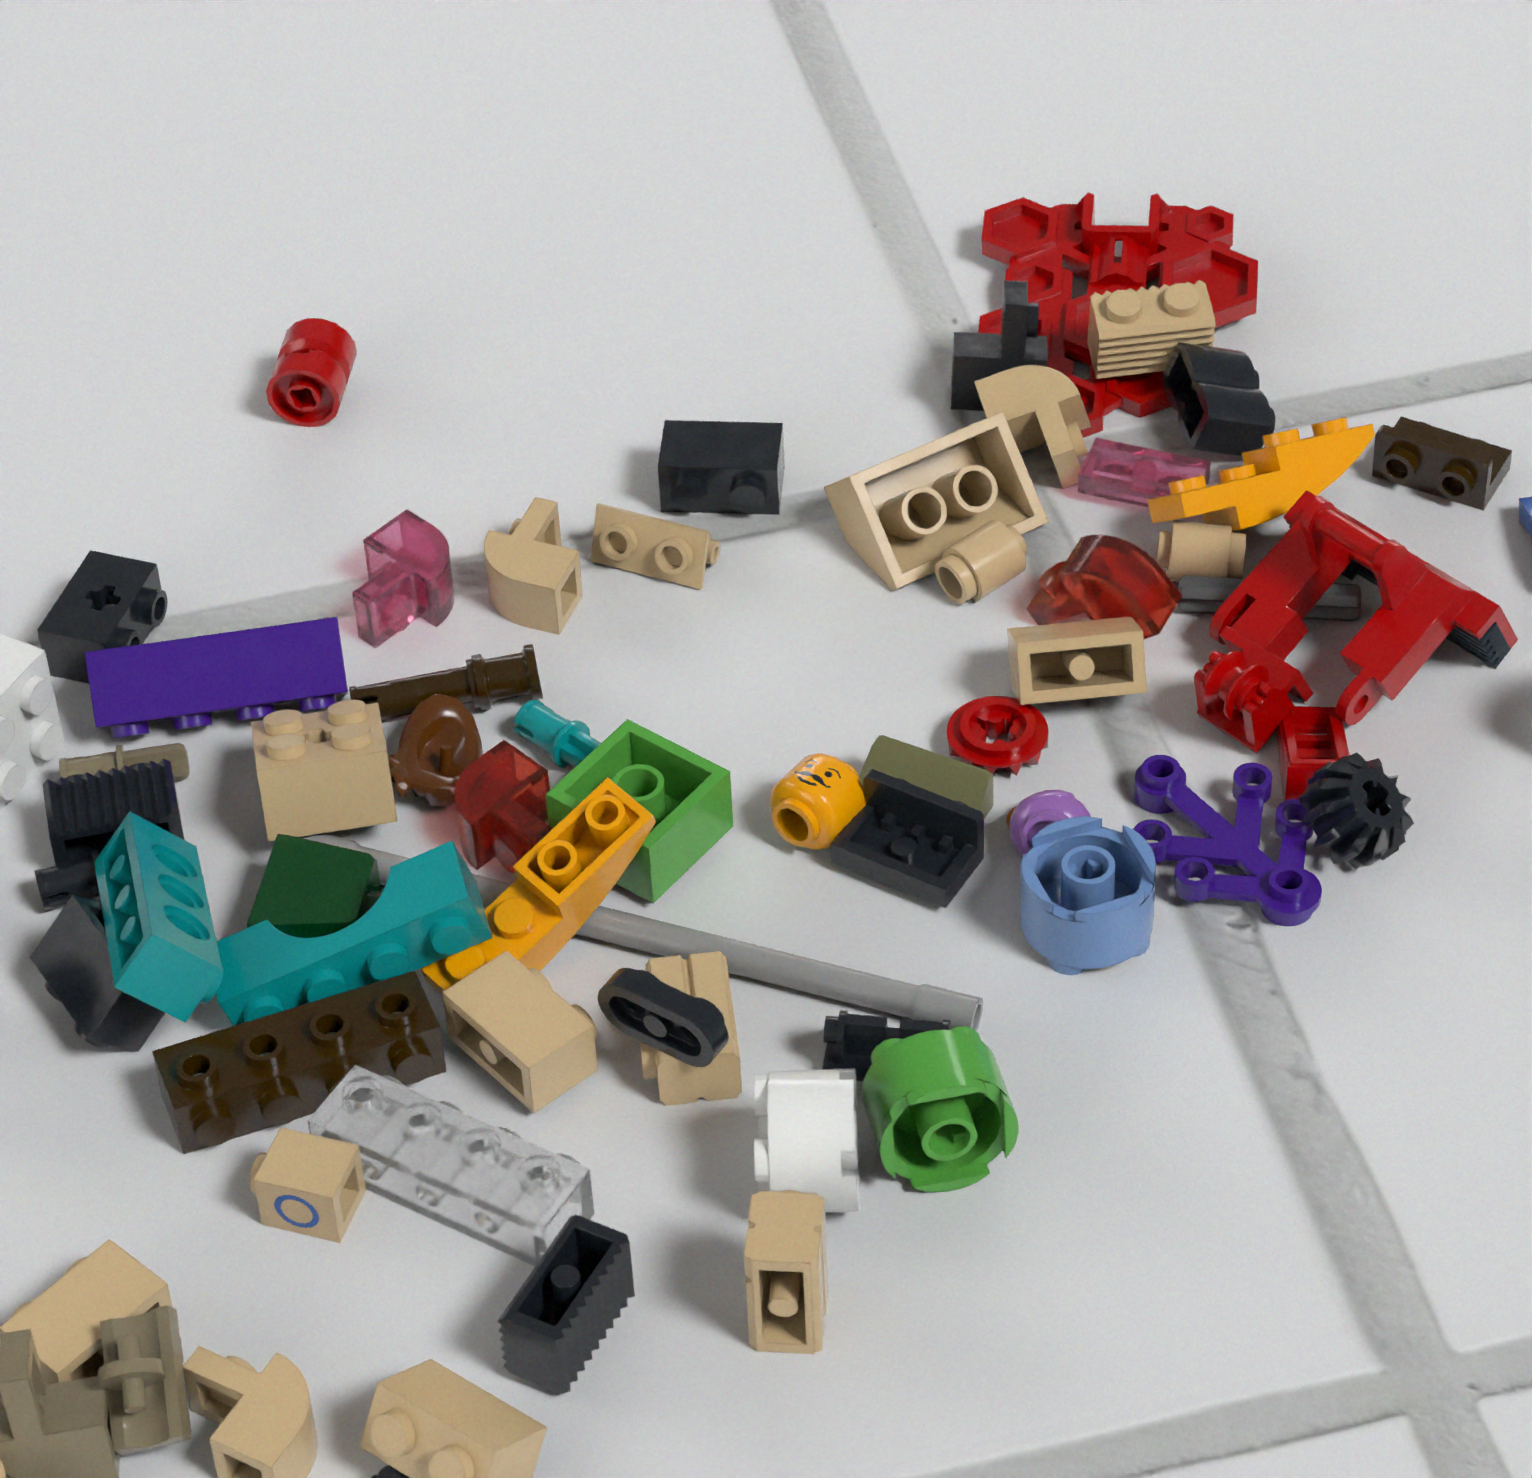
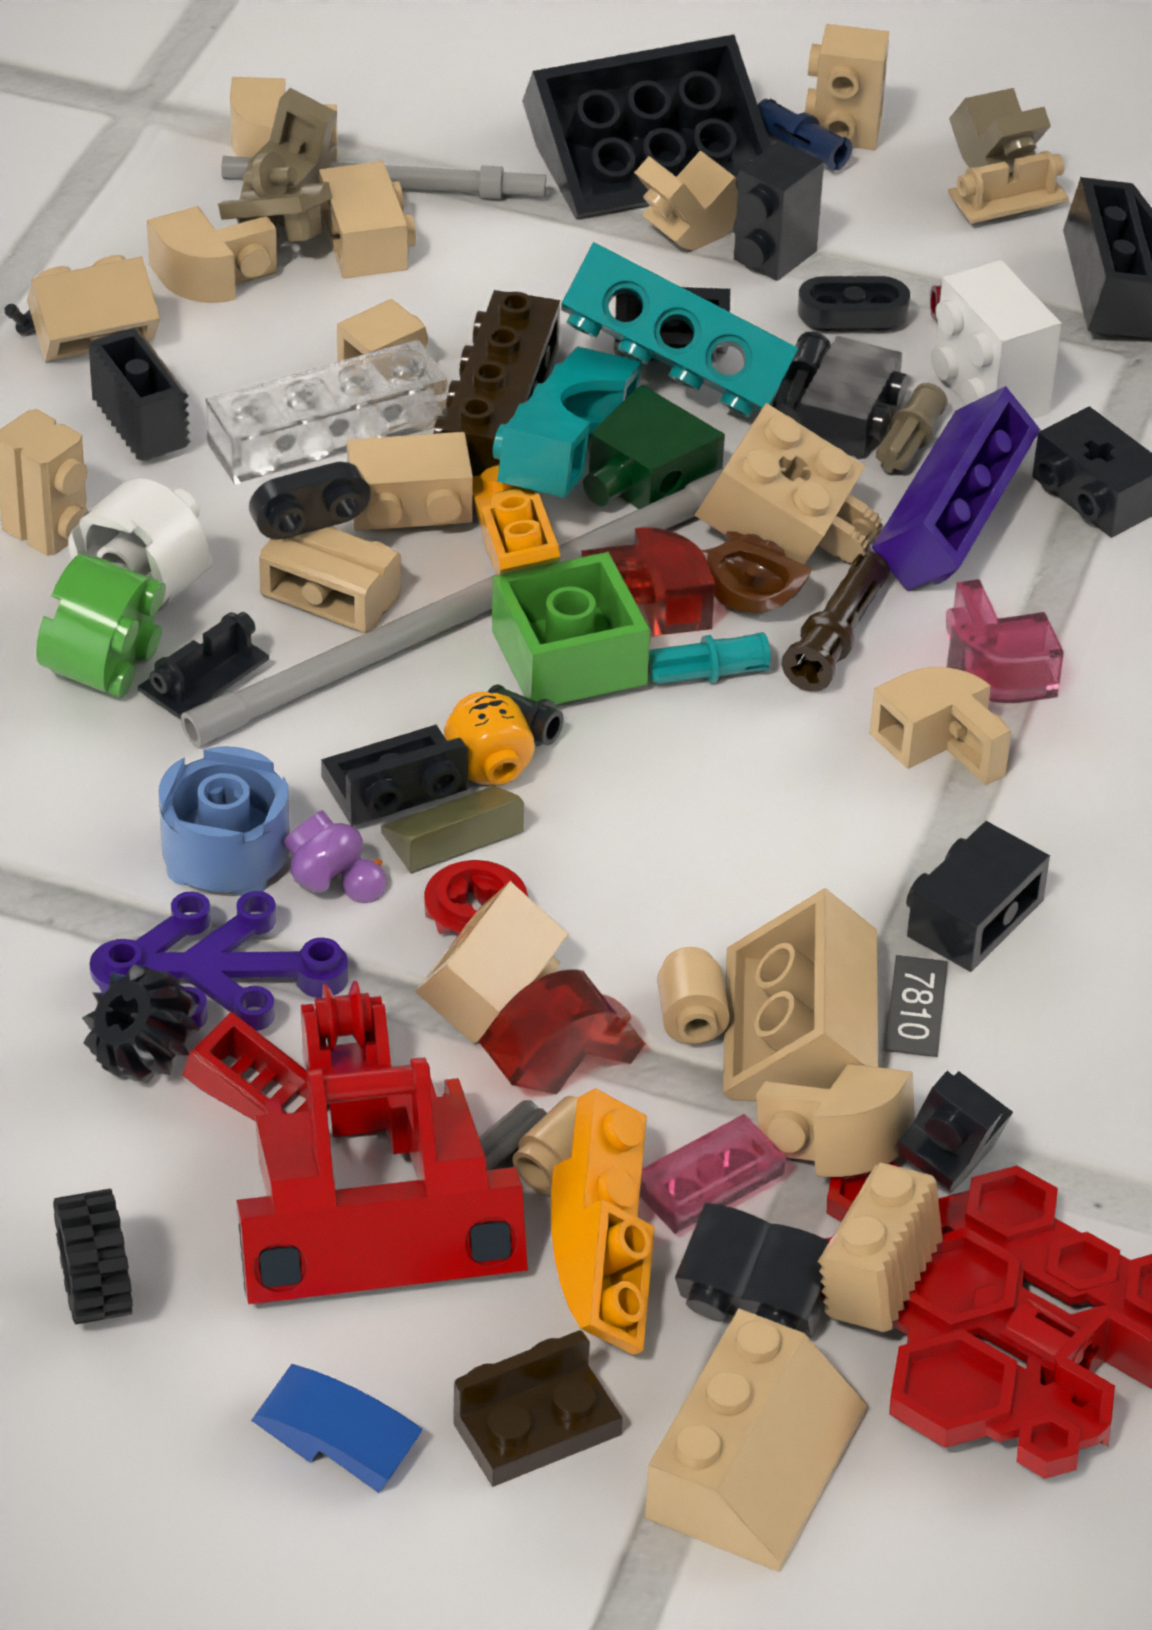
camera: 120 degrees right, 0 degrees up
(652, 546) = (895, 821): tan hinge -> none
(753, 816) = (540, 716): none -> black pin
(811, 486) = (916, 1005): none -> dark grey sticker
(1358, 358) = (753, 1443): none -> tan slope

